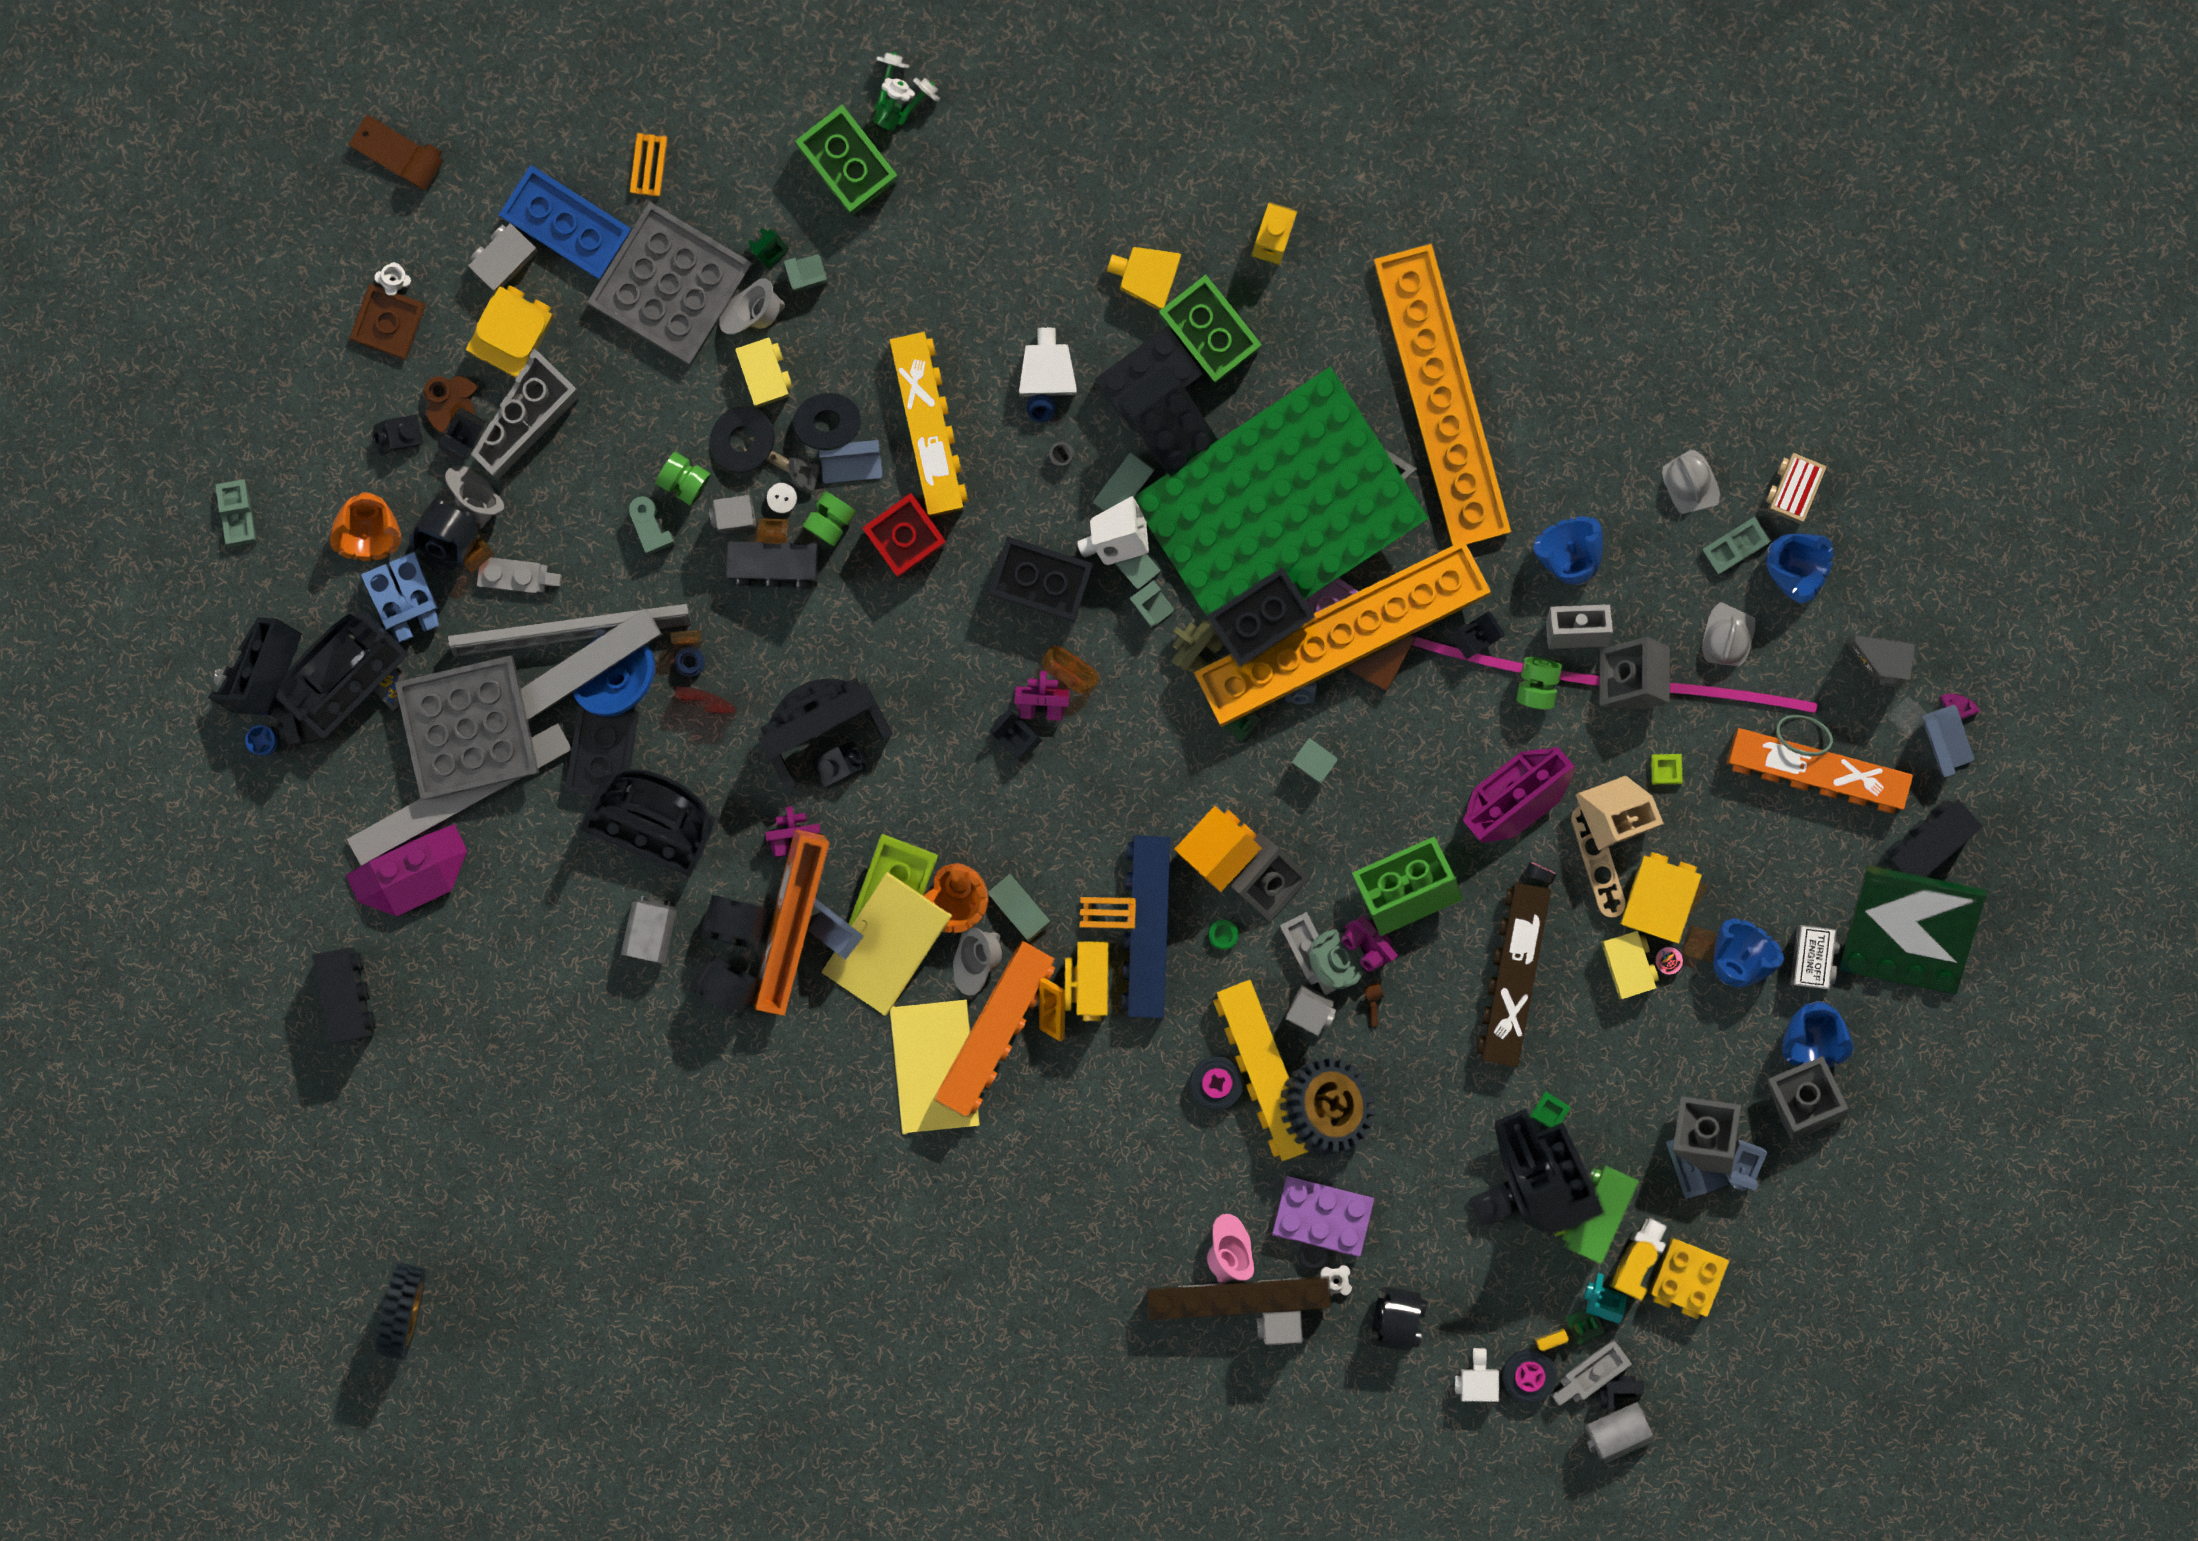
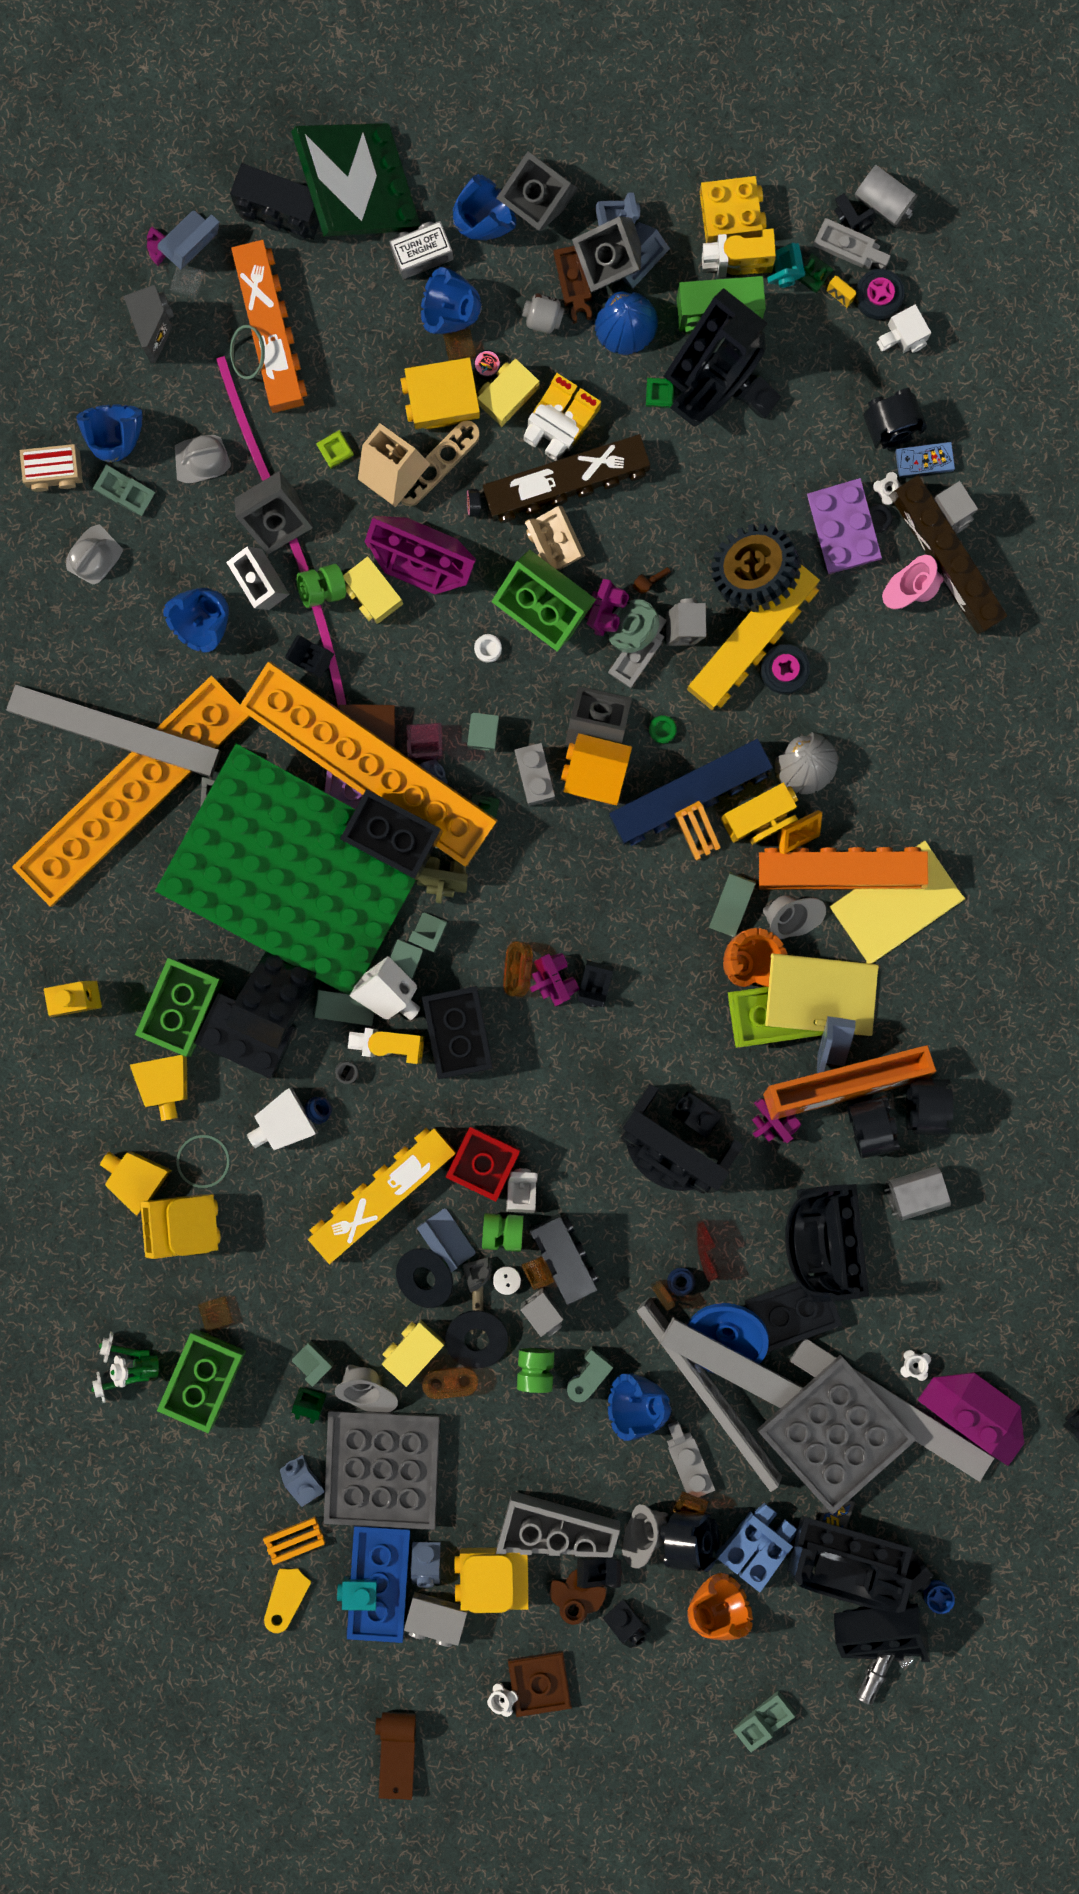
camera: 110 degrees left, 0 degrees up
(219, 639) = (874, 1678): none -> flat silver pin
(480, 840) = (919, 1372): none -> white plate
(558, 276) = (425, 1564): none -> sand blue bracket
(566, 198) = (357, 1594): none -> teal bracket
(596, 555) = (637, 1407): none -> blue hair
(599, 128) = (285, 1598): none -> yellow piece
(700, 202) = (301, 1481): none -> sand blue bracket
(715, 392) = (450, 1383): none -> clear orange plate
(858, 557) = (521, 1191): none -> white bracket
(902, 206) = (215, 1313): none -> clear orange tile
(1002, 219) = (180, 1226): none -> yellow brick
(1026, 266) = (178, 1156): none -> sand green piece
(1068, 507) = (386, 1043): none -> yellow hips
(1071, 199) = (133, 1178): none -> yellow torso
(1113, 1054) = (807, 764): none -> light grey hair
(1246, 787) = (534, 774): none -> light grey brick
(1335, 700) = (425, 742): none -> clear pink piece
(1345, 1331) = (925, 460): none -> medium blue tile
(1393, 810) = (488, 648): none -> white tile
(1462, 931) = (555, 538): none -> tan bracket
(1508, 410) = (113, 731): none -> light grey tile
(1508, 729) = (372, 591): none -> light yellow brick
(1570, 994) = (559, 427): none -> hips
(1634, 1117) = (626, 323): none -> blue hair
(1687, 1040) = (543, 313): none -> light grey head
(1703, 1085) = (572, 281): none -> reddish brown plate

